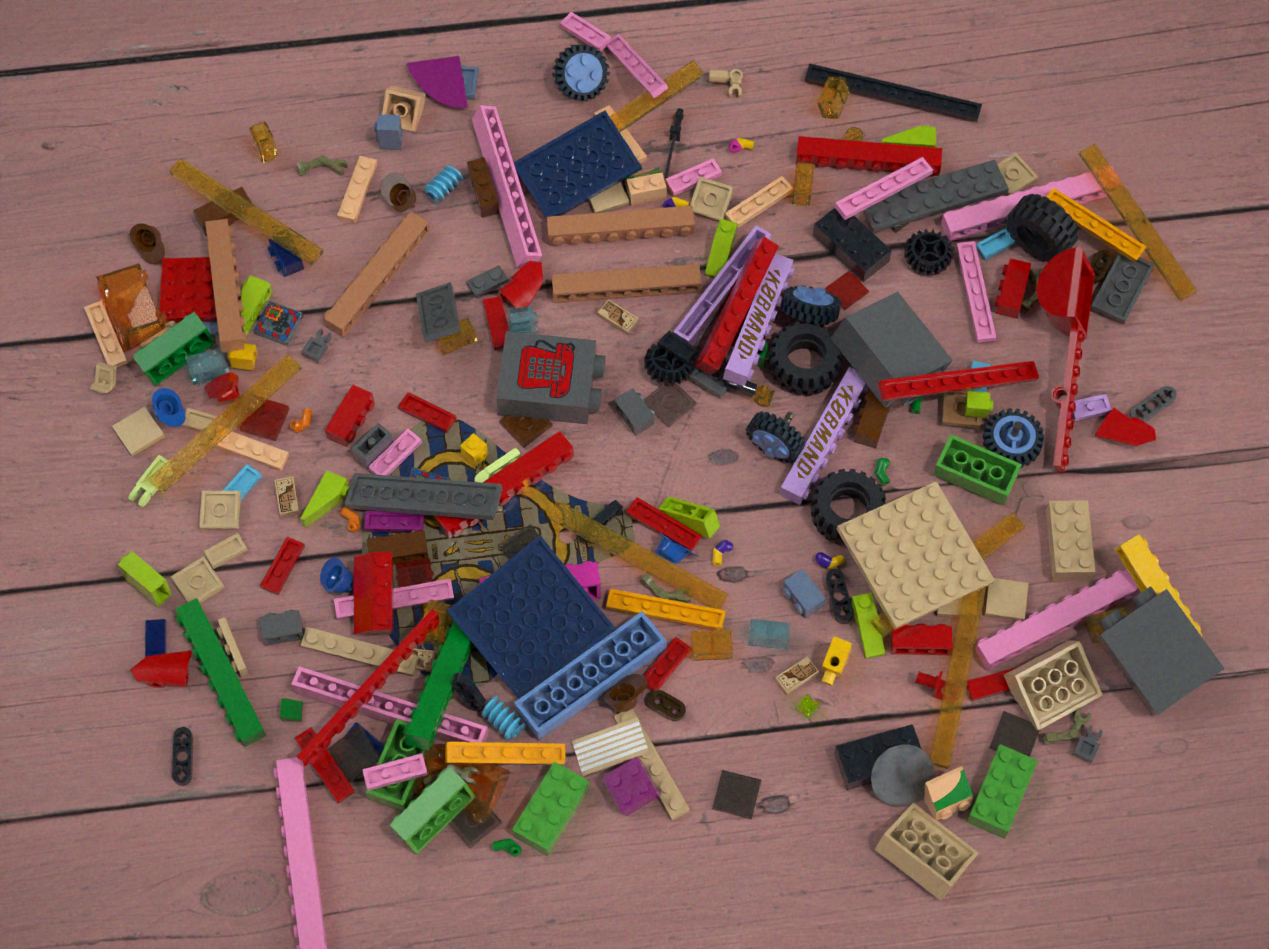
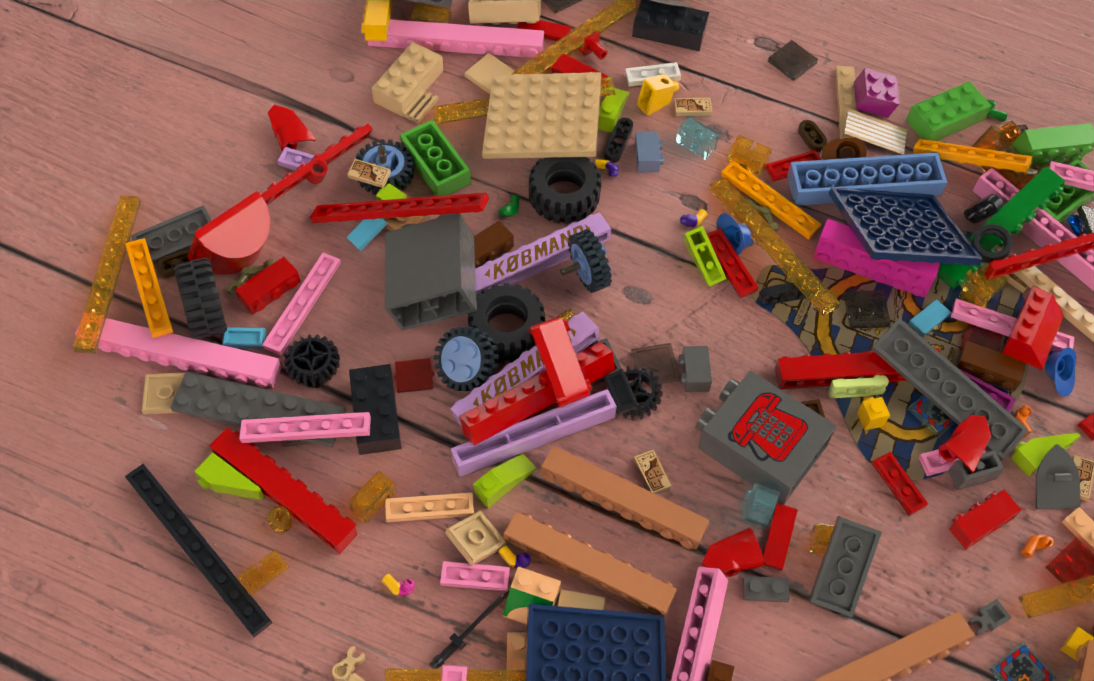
camera: 150 degrees left, 5 degrees down
(305, 473) = (1057, 481): none -> dark grey shield
(388, 456) = (967, 442): none -> red panel
(445, 654) = (996, 230): none -> black tyre
(468, 571) = (929, 318): none -> medium azure tile
(503, 720) = (957, 189): medium azure piece -> none
(742, 316) = (560, 361): none -> windscreen
(808, 706) = (700, 80): clear neon green wheel -> none
(857, 687) = (636, 75): none -> white plate
(1014, 412) = (369, 173): none -> tile
(1037, 512) = (417, 105): none -> tan tile
(1156, 397) = (253, 143): dark grey beam -> none

